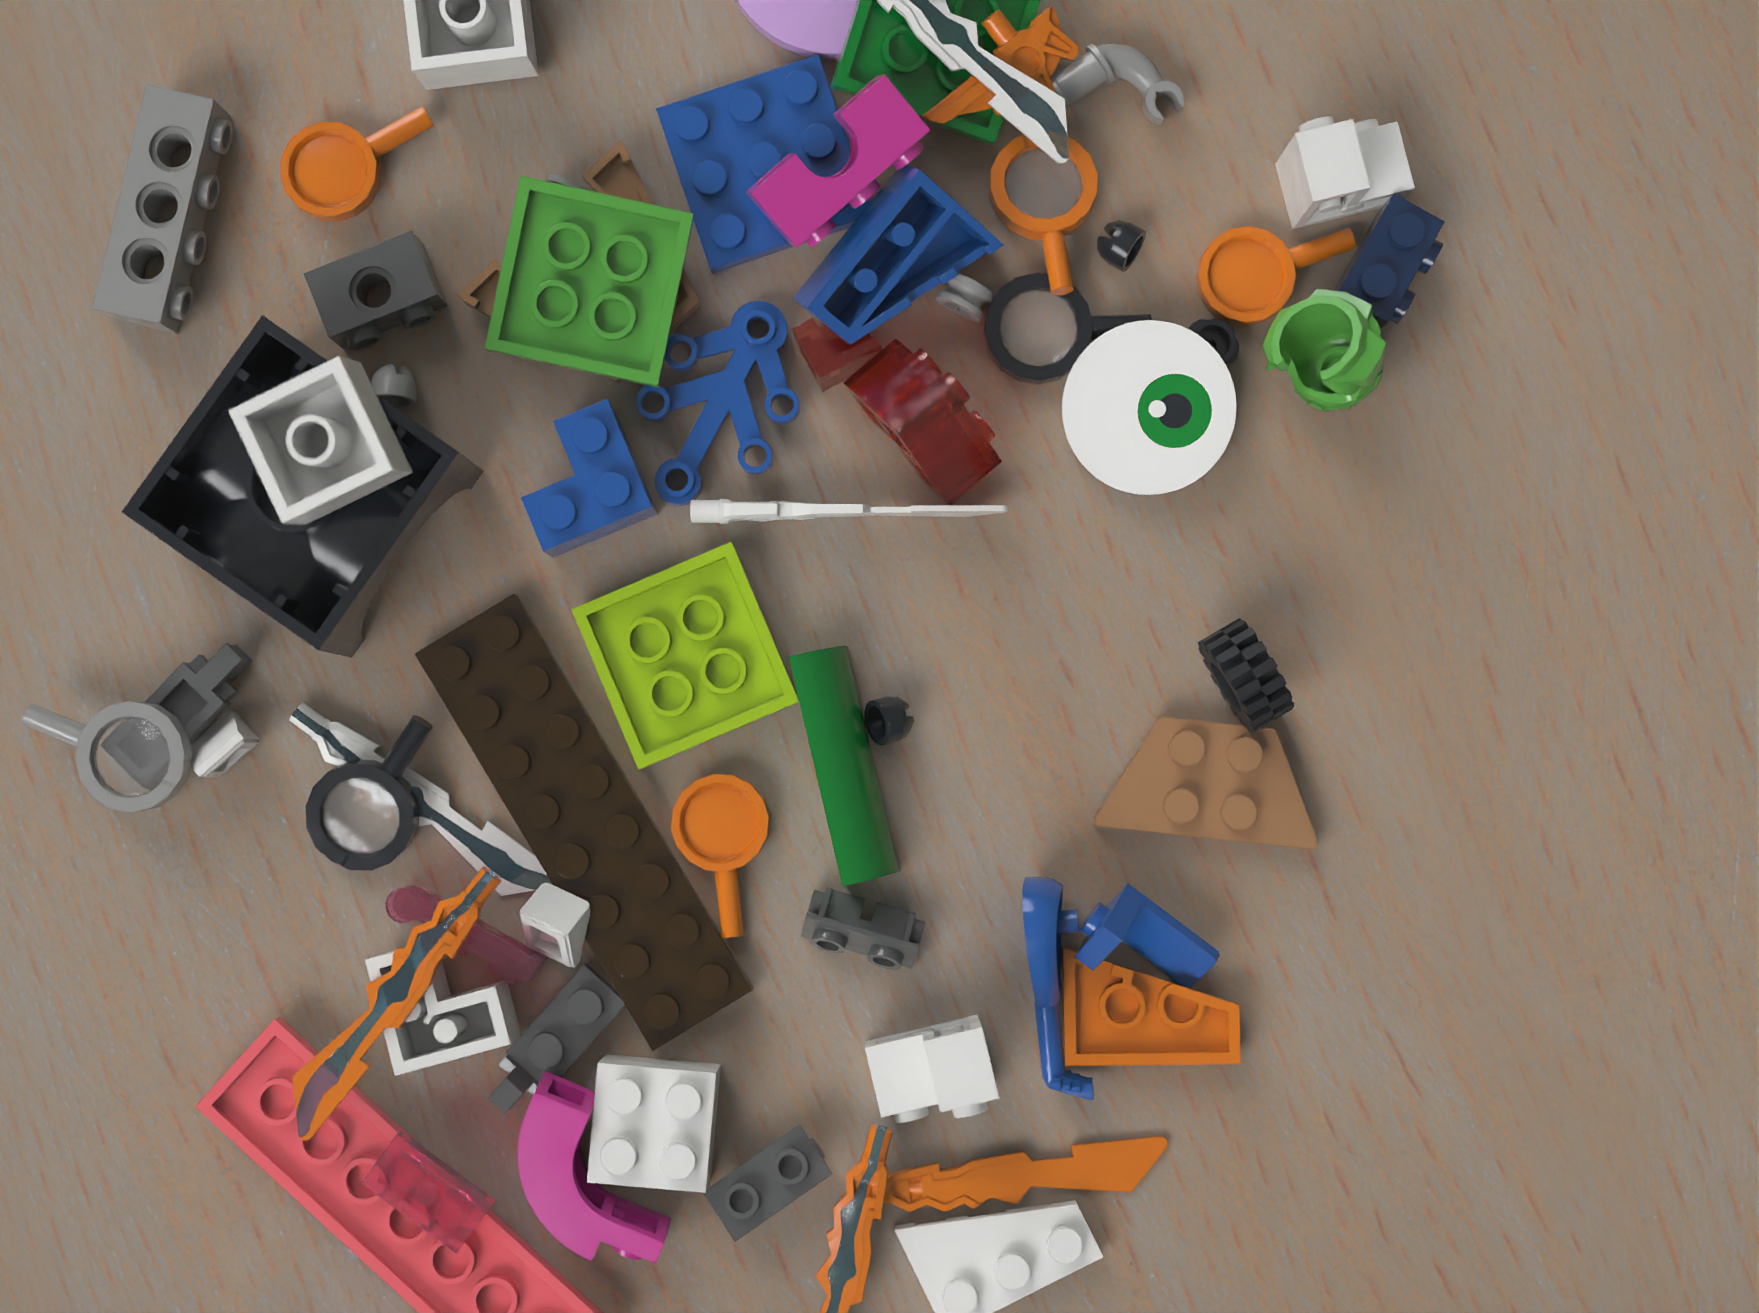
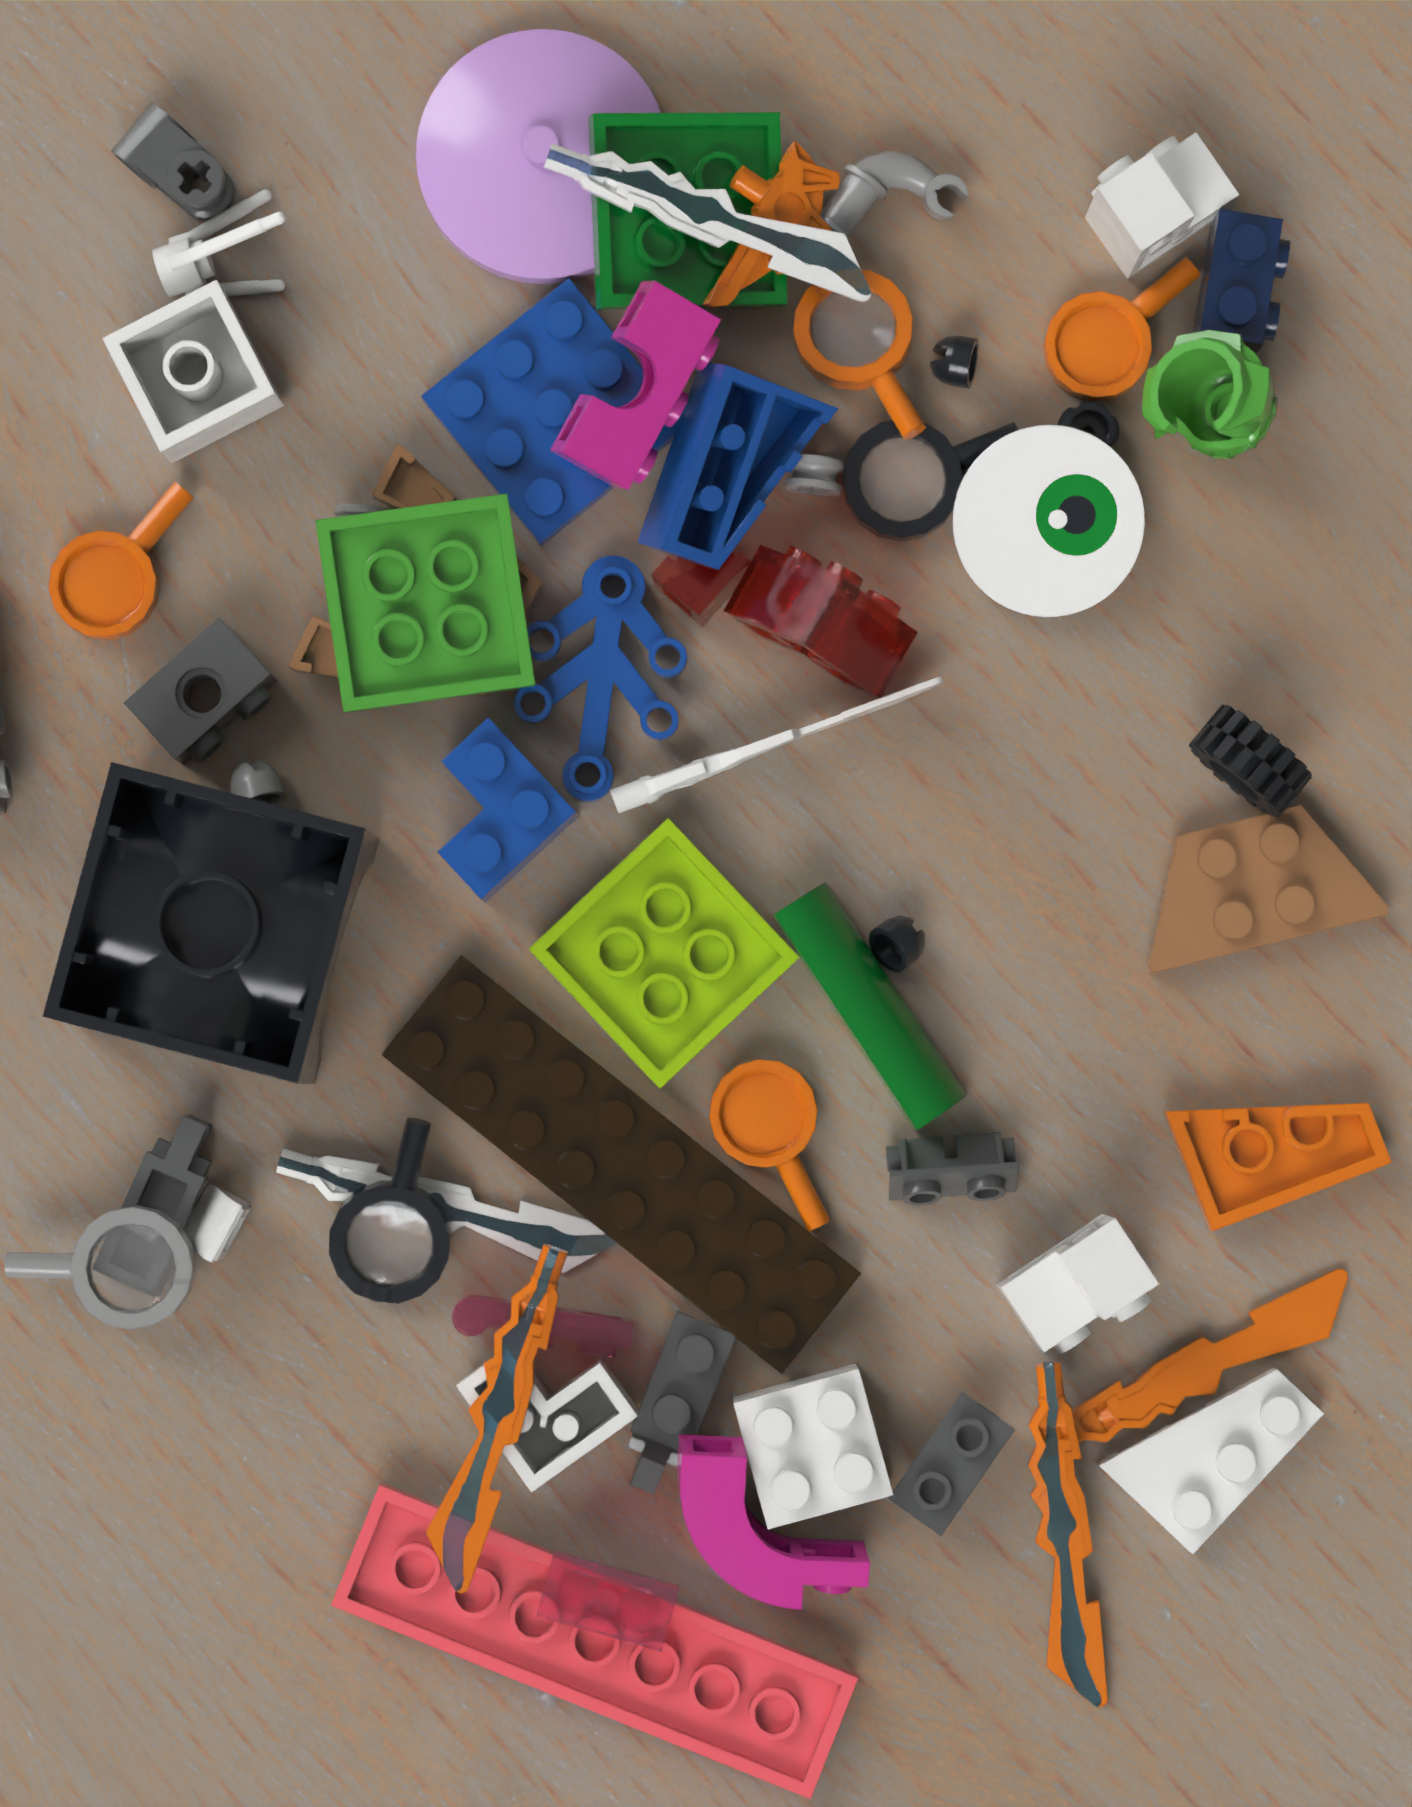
camera: 20 degrees left, 0 degrees up
(320, 441) = (227, 868): white brick -> none
(556, 923) = (633, 1279): white slope -> none
(1043, 929) = (1139, 1096): blue piece -> none
(1149, 932) = (1248, 1063): blue bracket -> none

